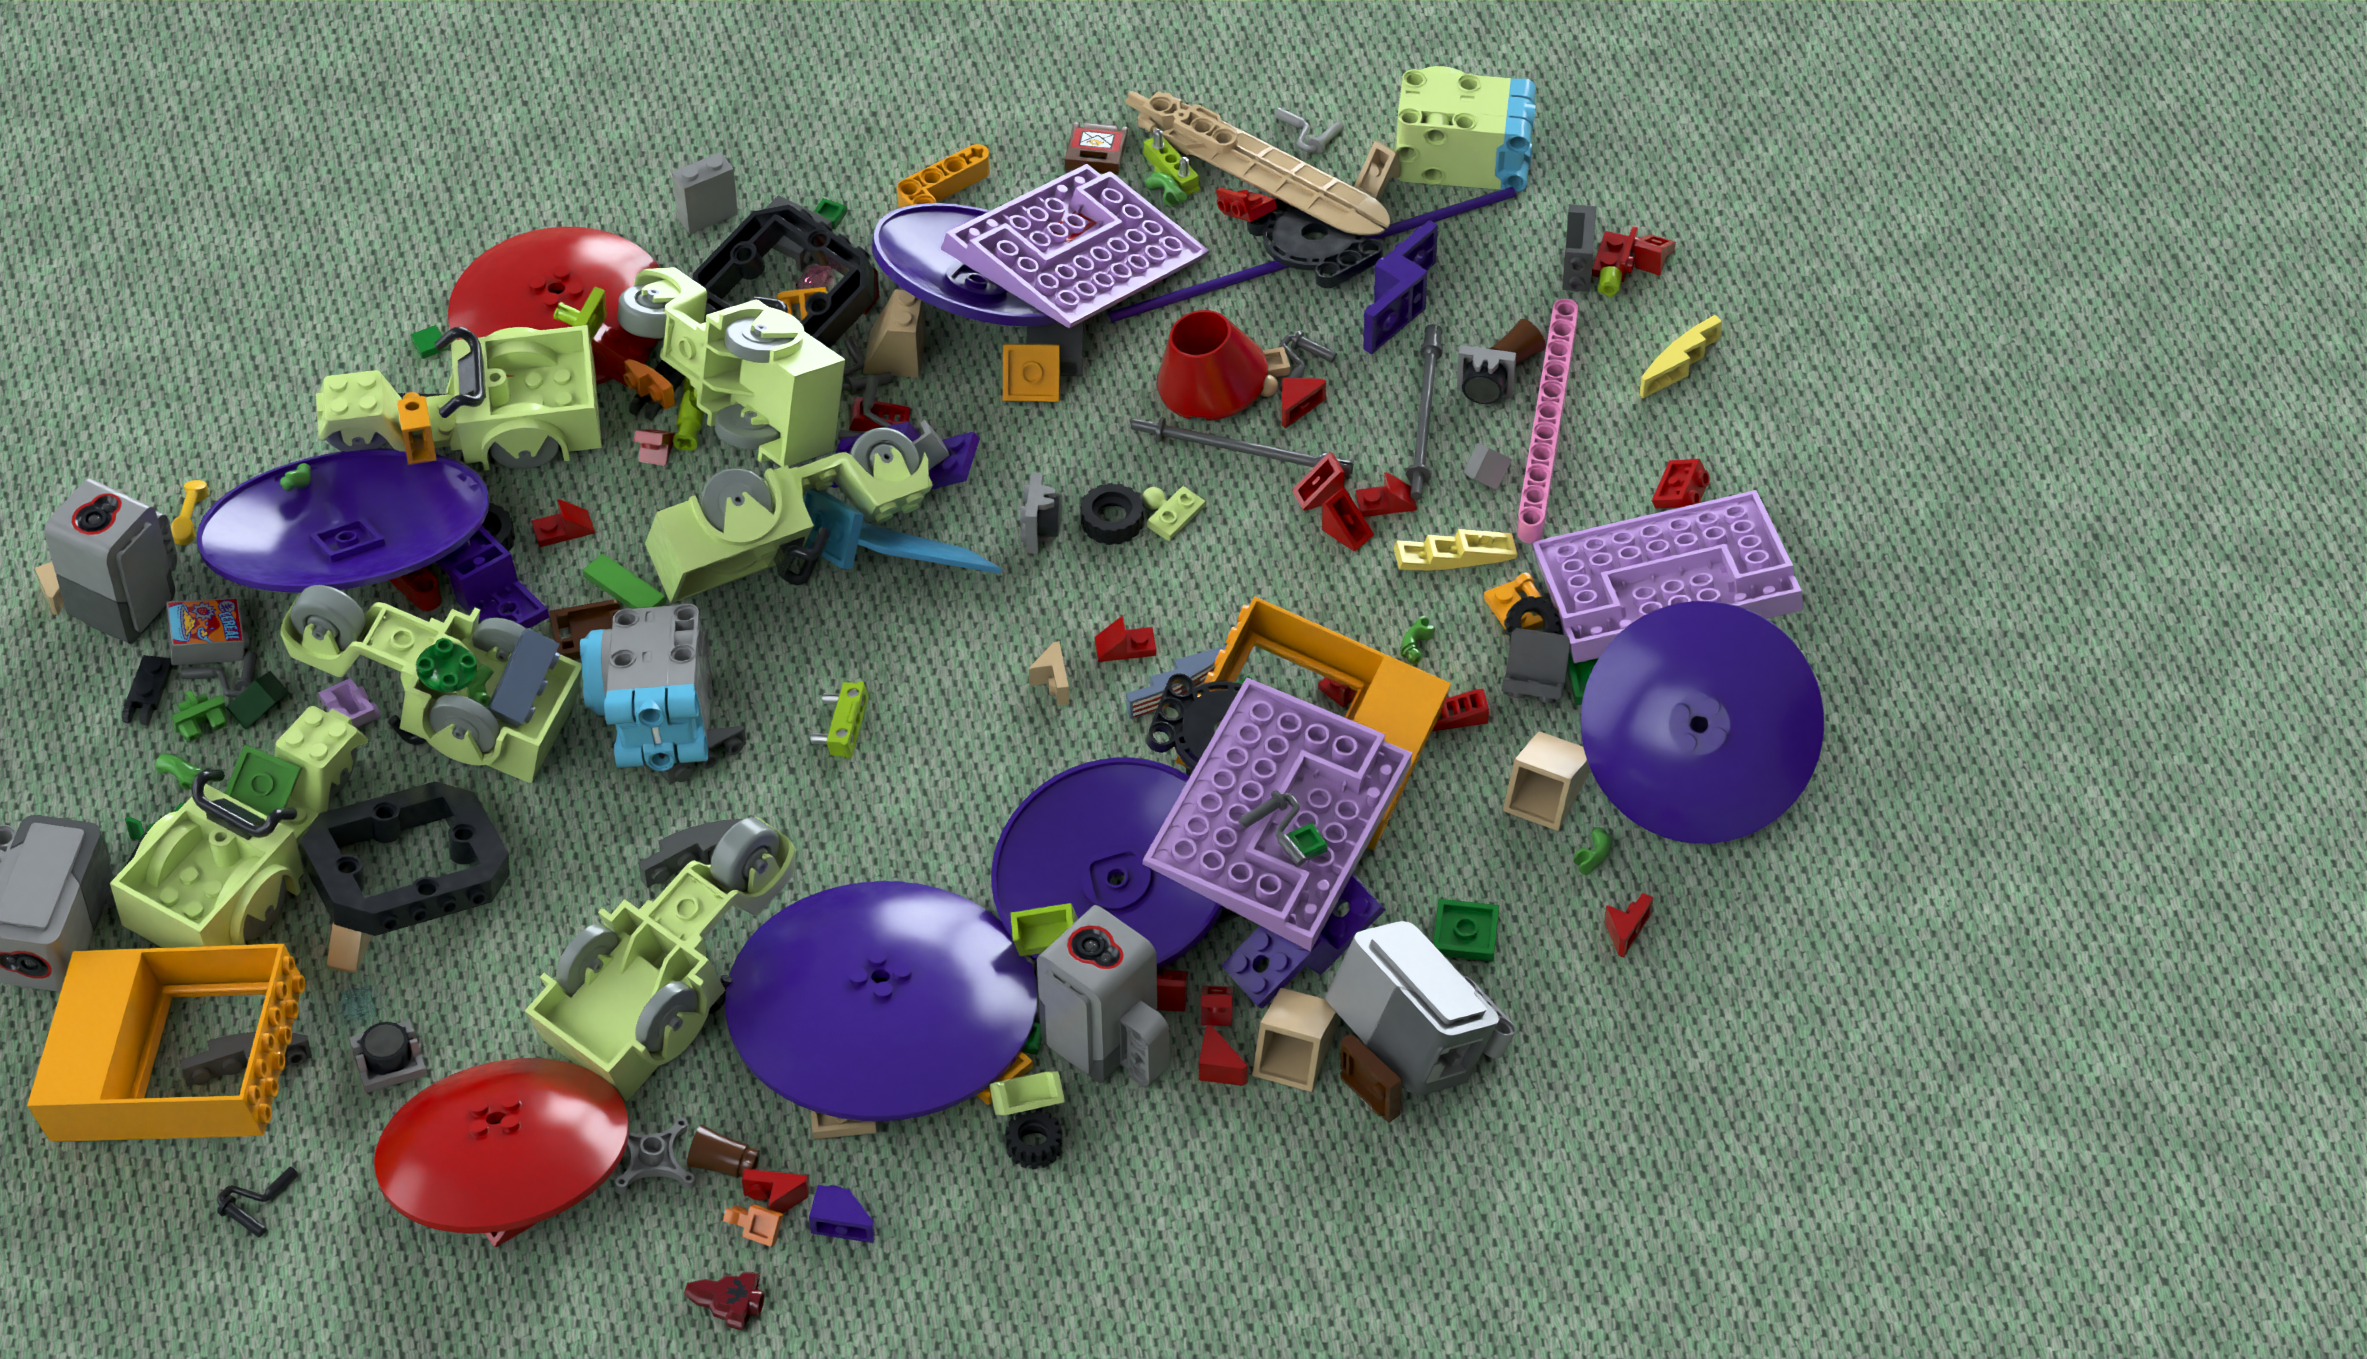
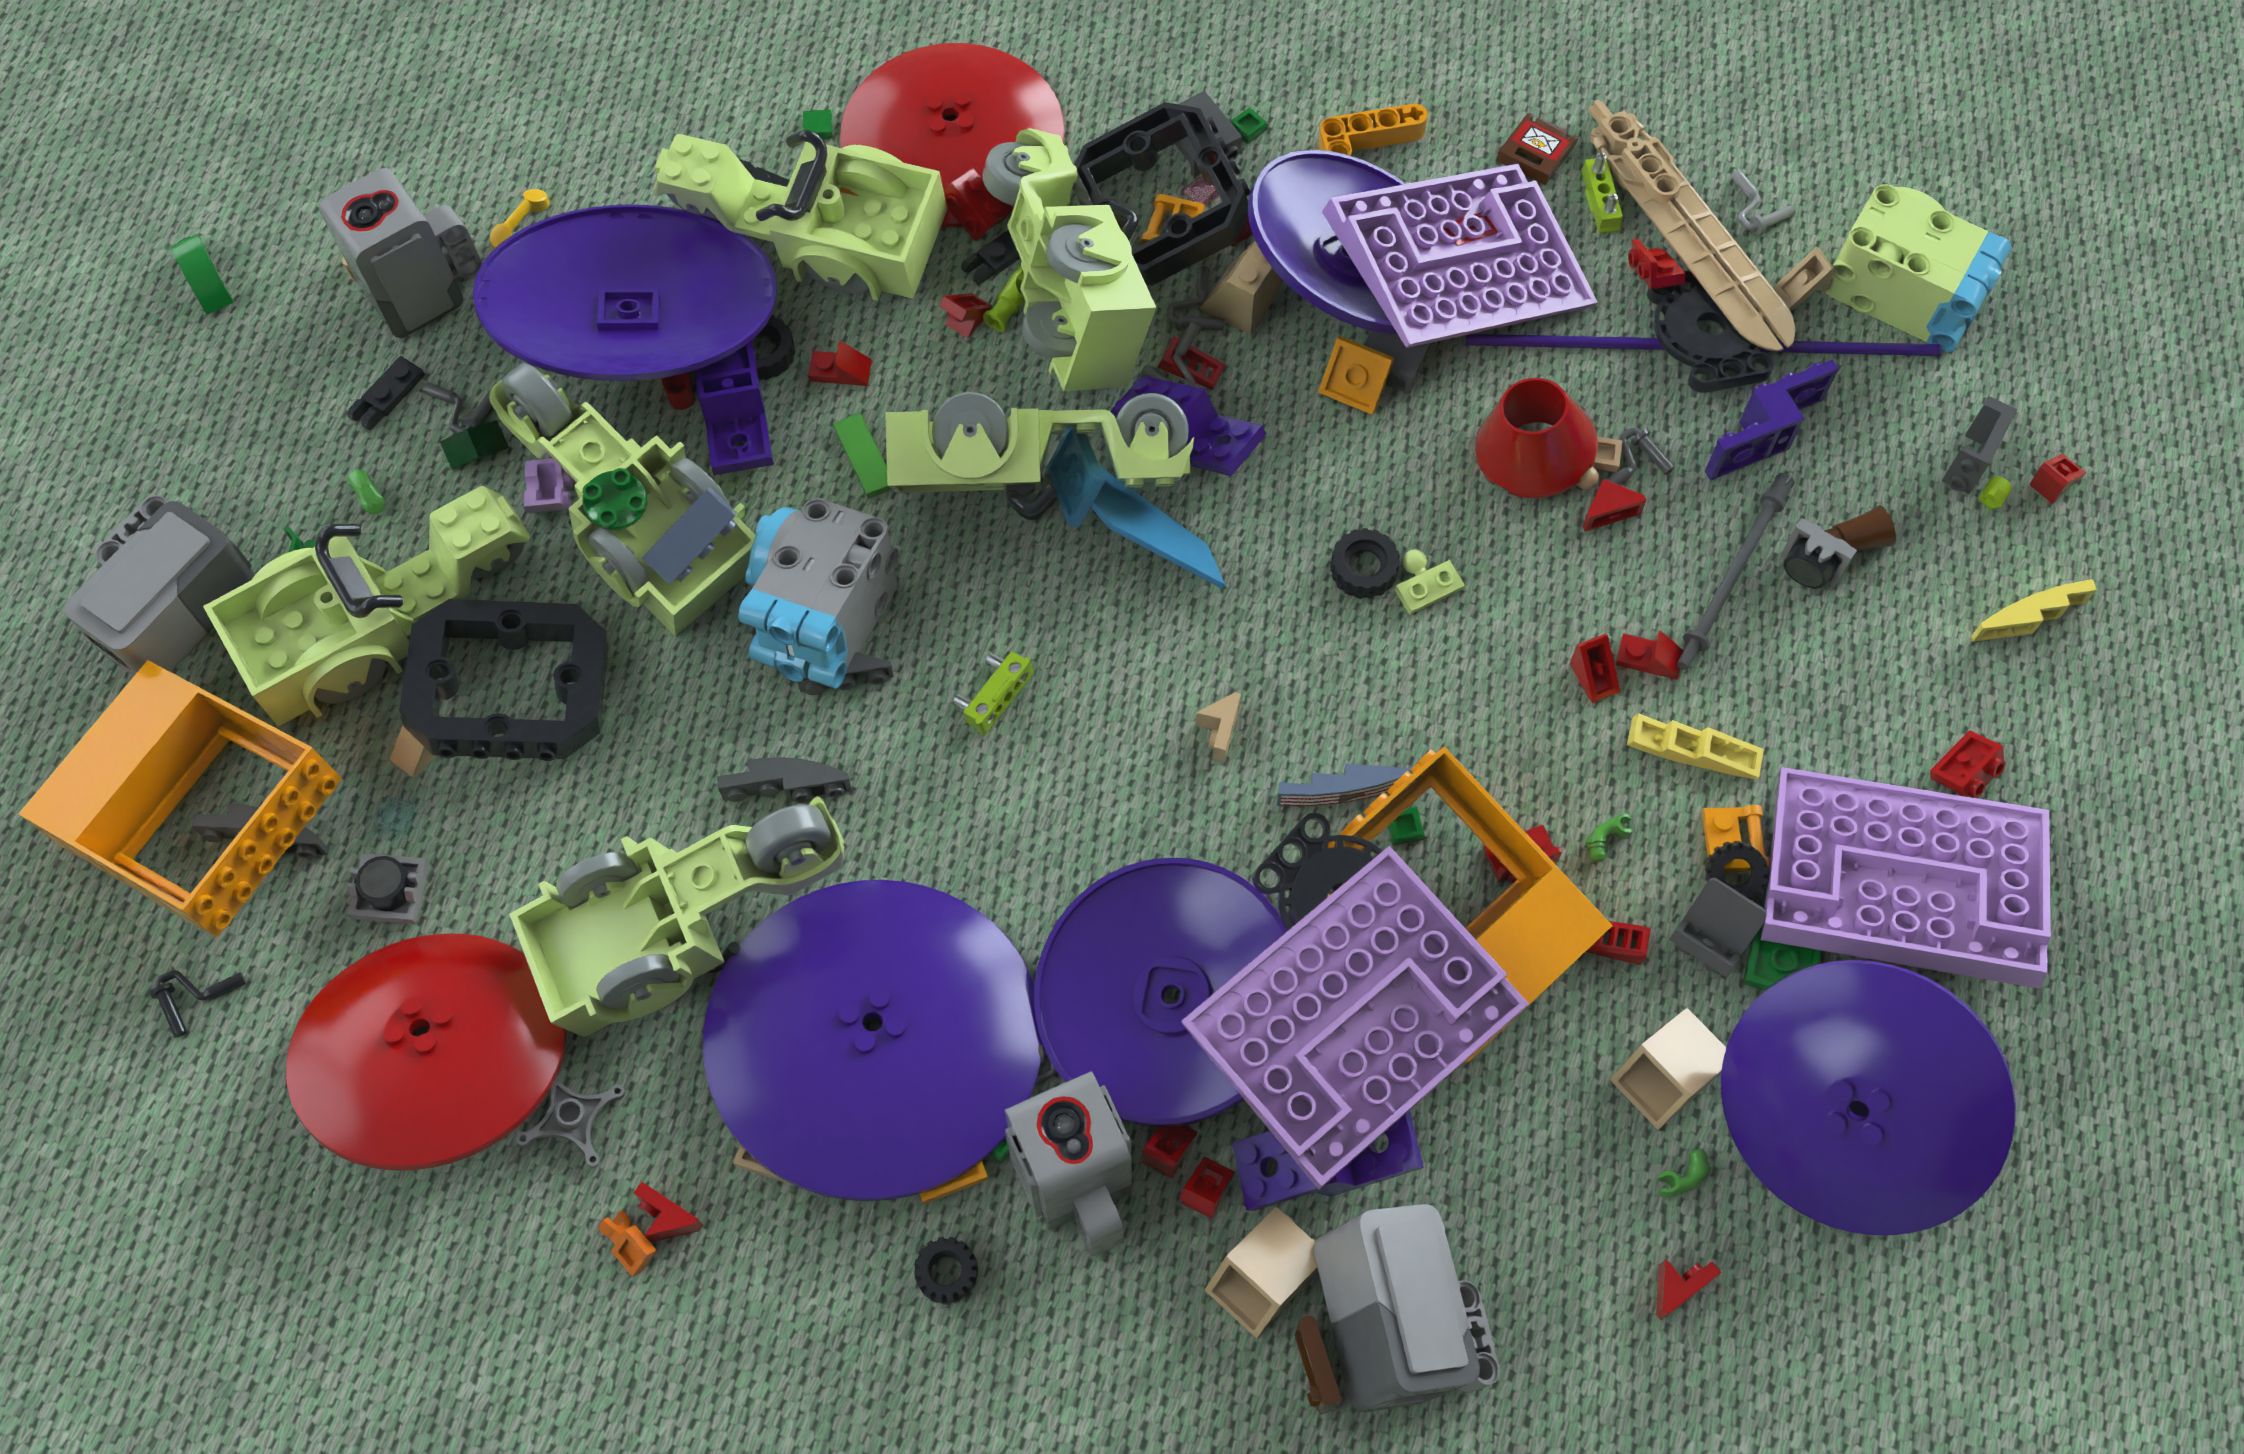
camera: 25 degrees right, 15 degrees up
(196, 711) = (426, 440): bright green hips -> none
(206, 631) = (459, 354): brick -> none
(262, 780) = (402, 550): bright green tile -> none
(298, 478) = (624, 225): bright green arm -> none
(415, 417) = (738, 216): light orange torso -> none
(476, 689) = (643, 529): bright green arm -> none
(581, 621) = (809, 482): reddish brown container -> none
(592, 313) = (955, 160): lime tile -> none
(648, 381) = (985, 248): orange slope -> none
(705, 193) = (1135, 63): light grey brick -> none
(720, 1153) = (634, 1148): reddish brown plant -> none
(729, 1298) = (562, 1322): dark red rock -> none
(840, 1215) = (712, 1272): dark purple slope -> none
(931, 445) = (1211, 427): light grey panel -> none
(1026, 1092) = (960, 1217): yellowish green panel -> none
(1038, 928) = (1065, 1034): lime panel -> none
(1040, 513) = (1290, 540): light grey piece -> none
(1121, 644) = (1306, 716): red slope -> none
(1162, 430) = (1602, 589): dark grey bar -> none
(1172, 190) = (1590, 226): bright green piece -> none
(1219, 1061) = (1173, 1261): red slope -> none
(1278, 801) = (1339, 1061): dark grey piece -> none
(1309, 841) = (1364, 1070): green tile -> none
(1320, 483) = (1589, 614): red slope -> none
(1466, 929) = (1504, 1214): green plate -> none
(1487, 466) = (1772, 660): light grey panel -> none
(1547, 421) = (1851, 639): bright pink beam -> none
(1616, 251) = (2017, 461): red bracket -> none

